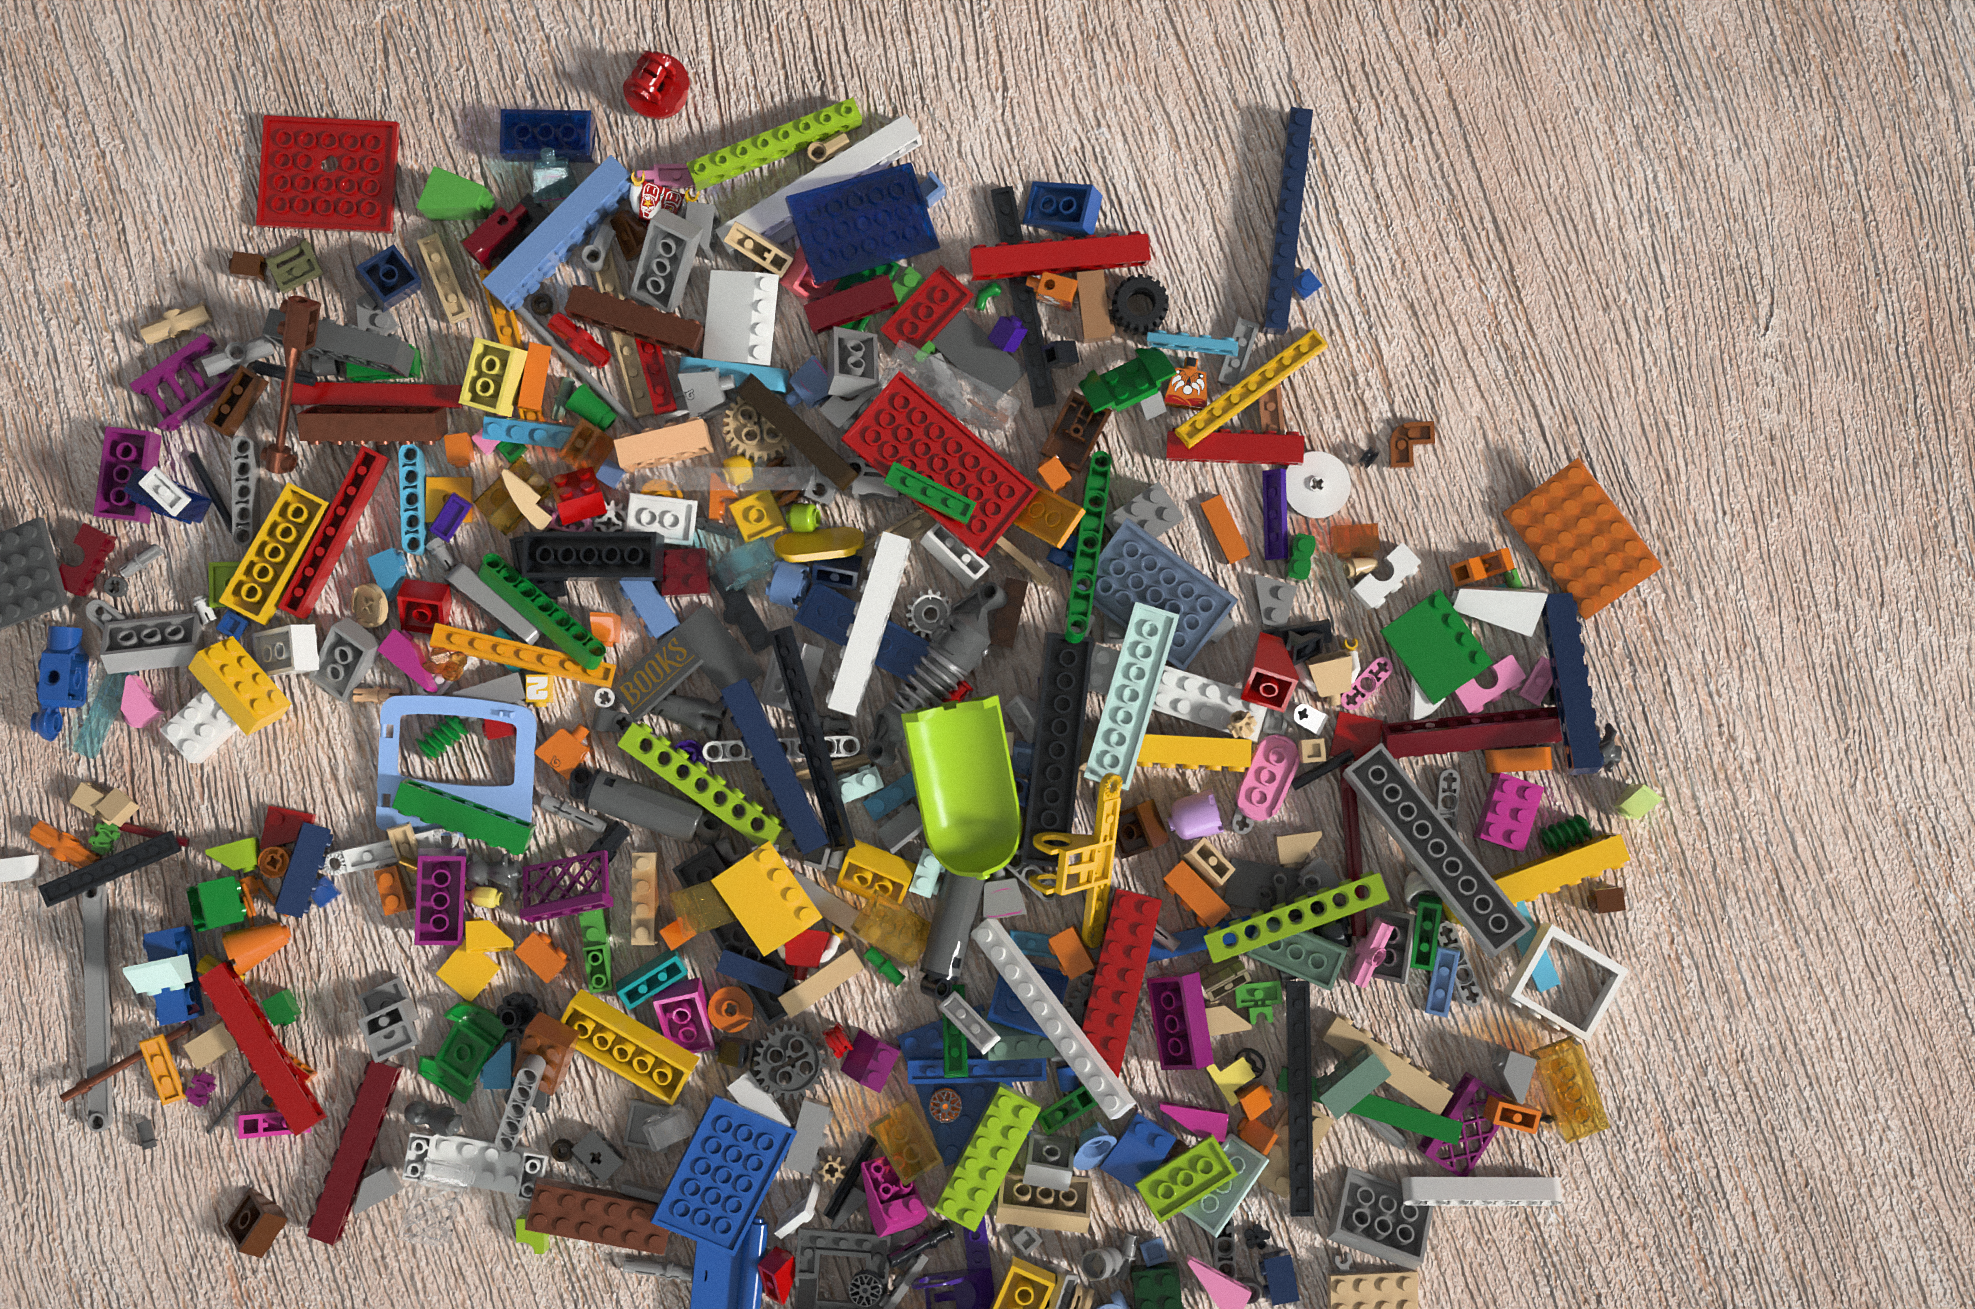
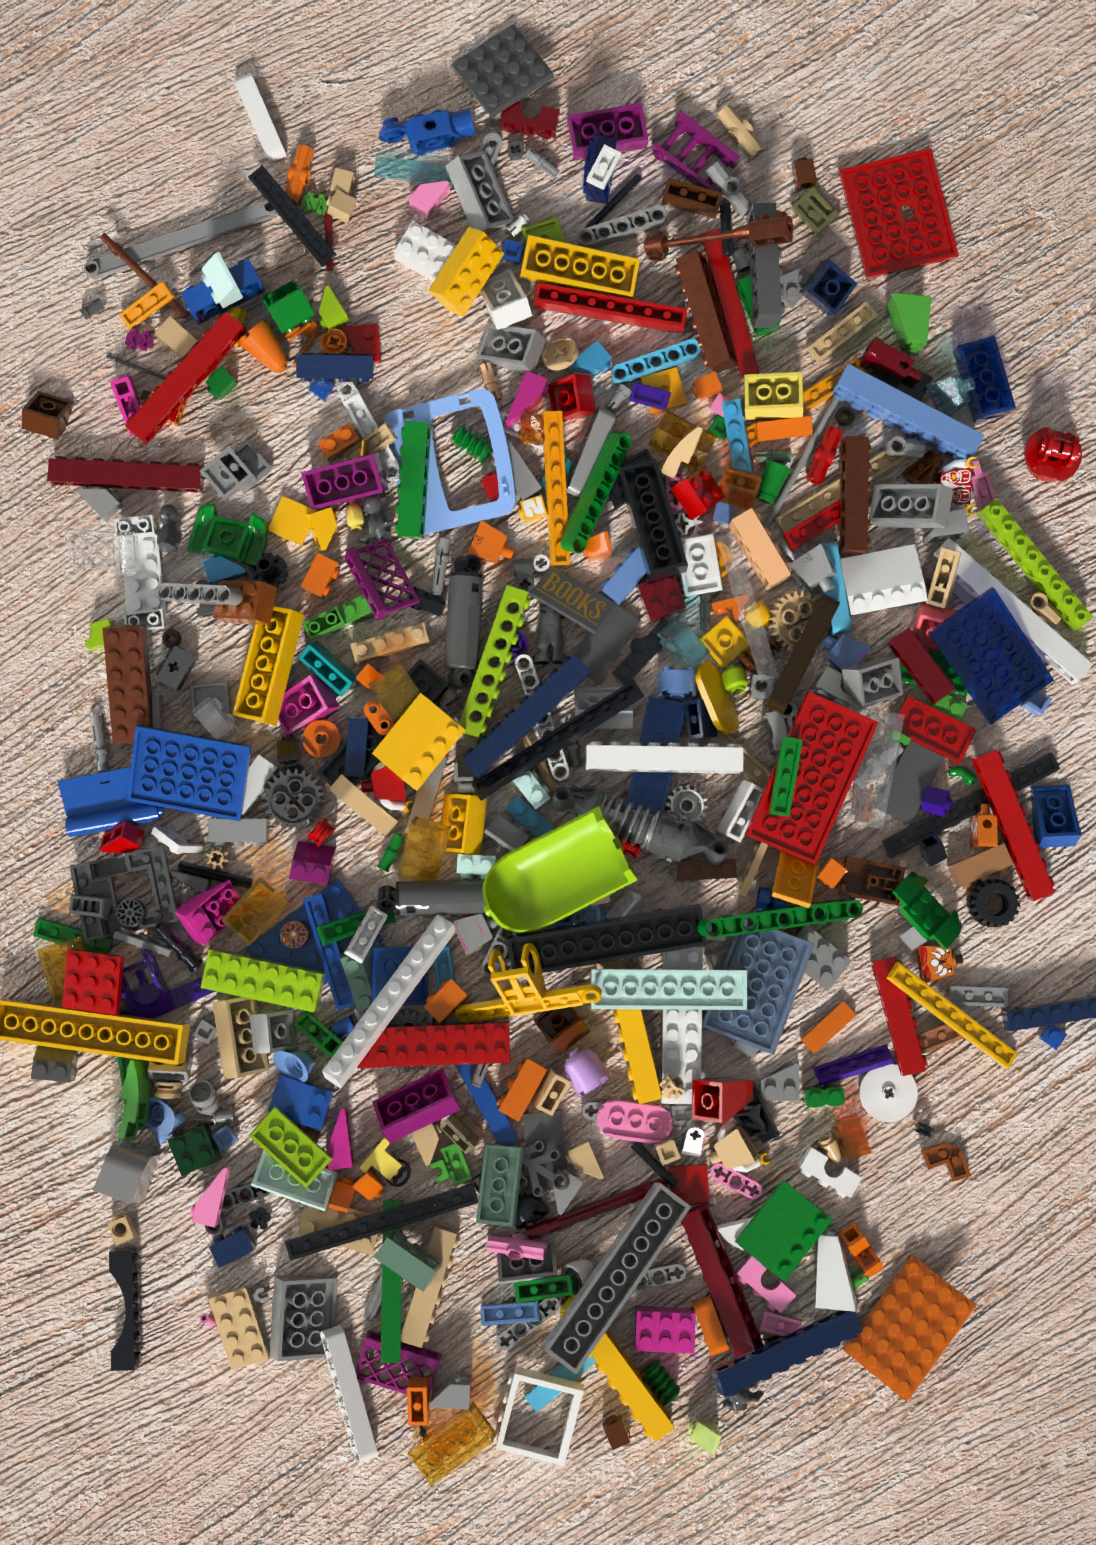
camera: 75 degrees right, 0 degrees up
(725, 936) = (378, 717): none -> orange plate
(1201, 344) = (973, 949): medium azure plate -> none
(1376, 895) = (575, 1229): lime brick -> none

